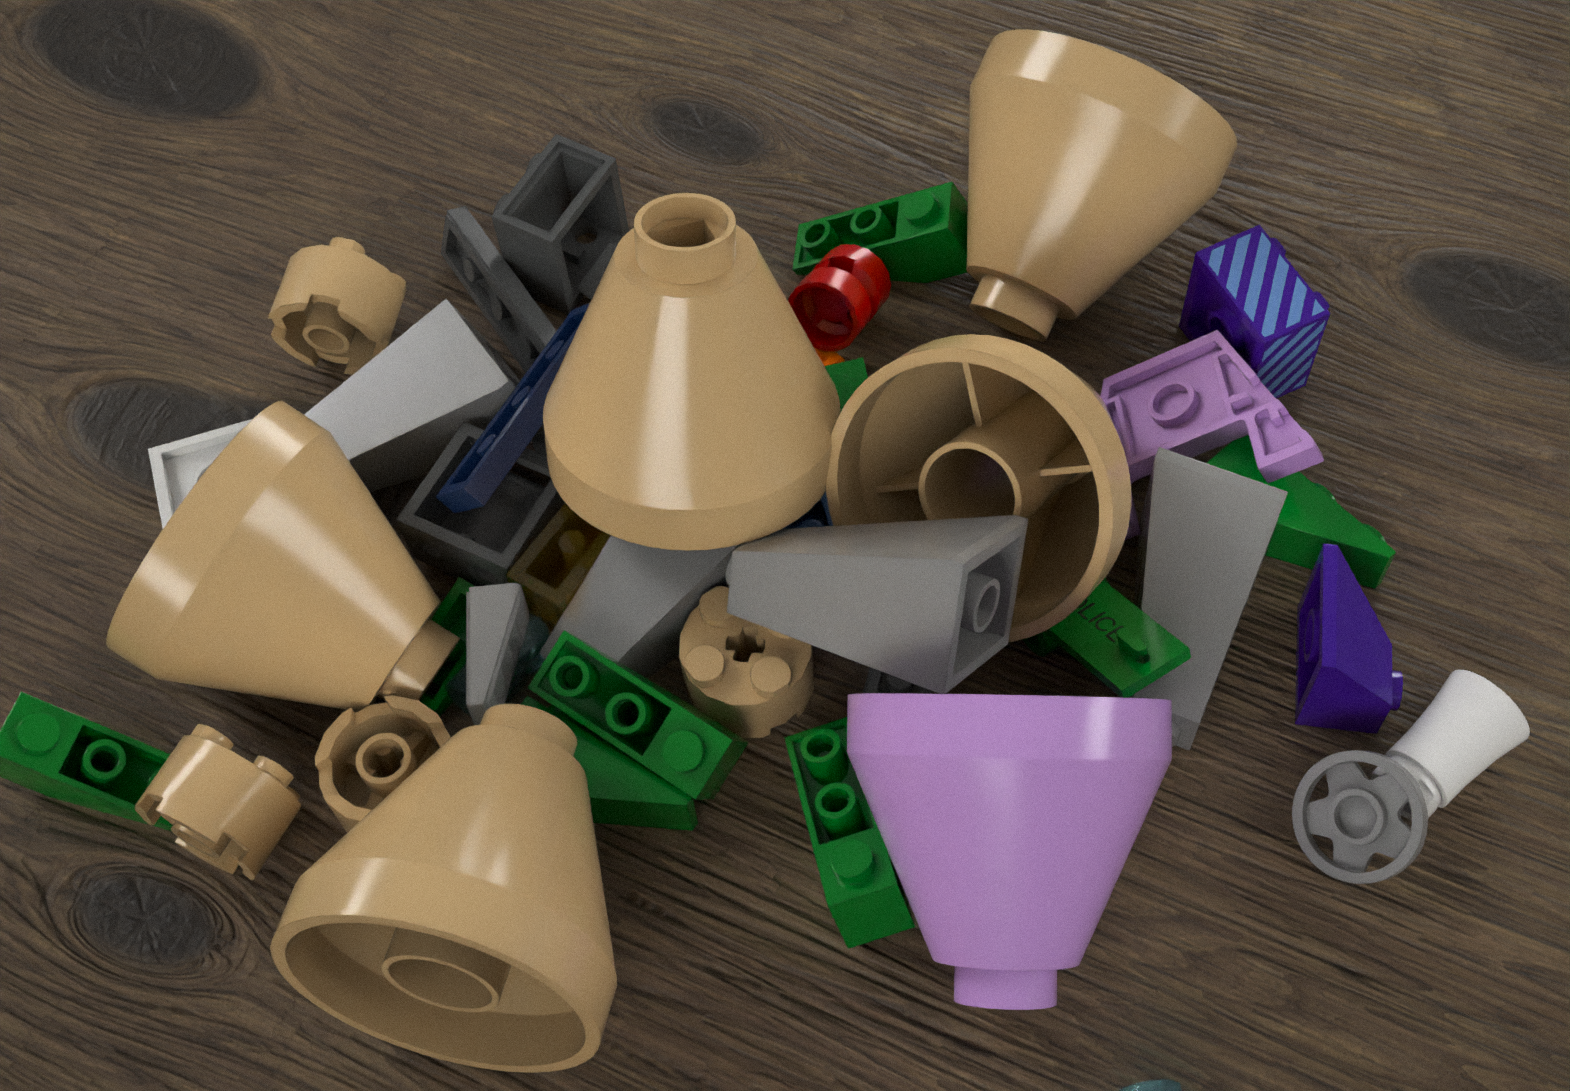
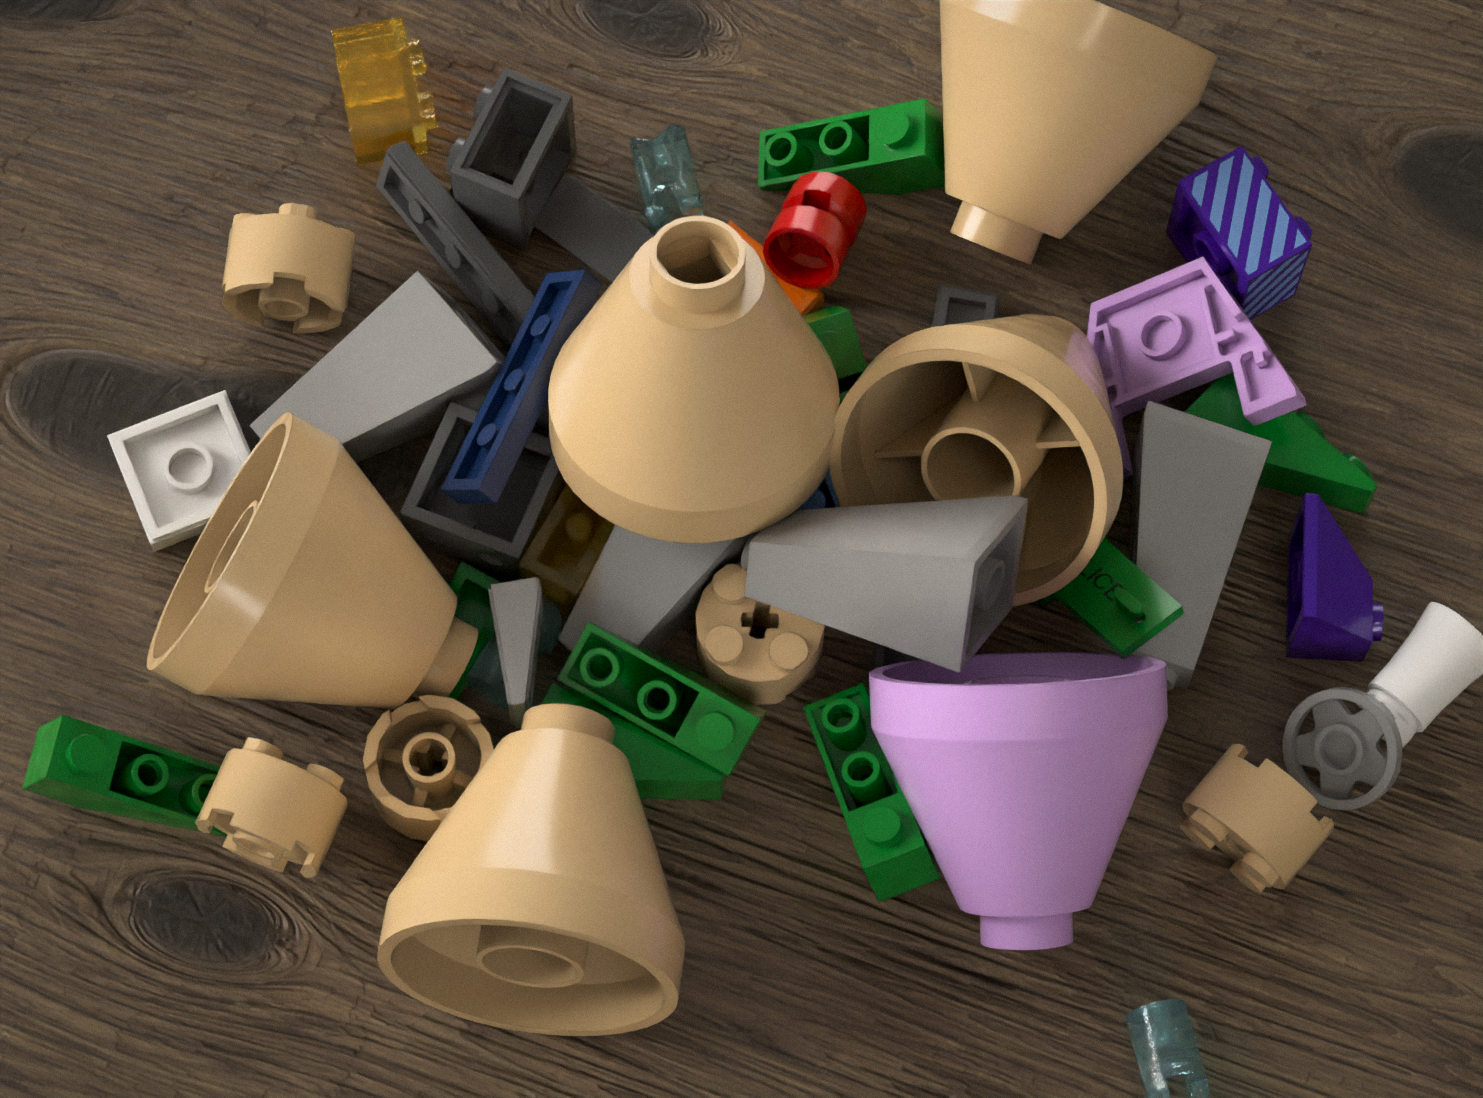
camera: 10 degrees left, 10 degrees up
(456, 168) = (381, 88): none -> clear yellow brick
(1264, 884) = (1255, 819): none -> tan brick

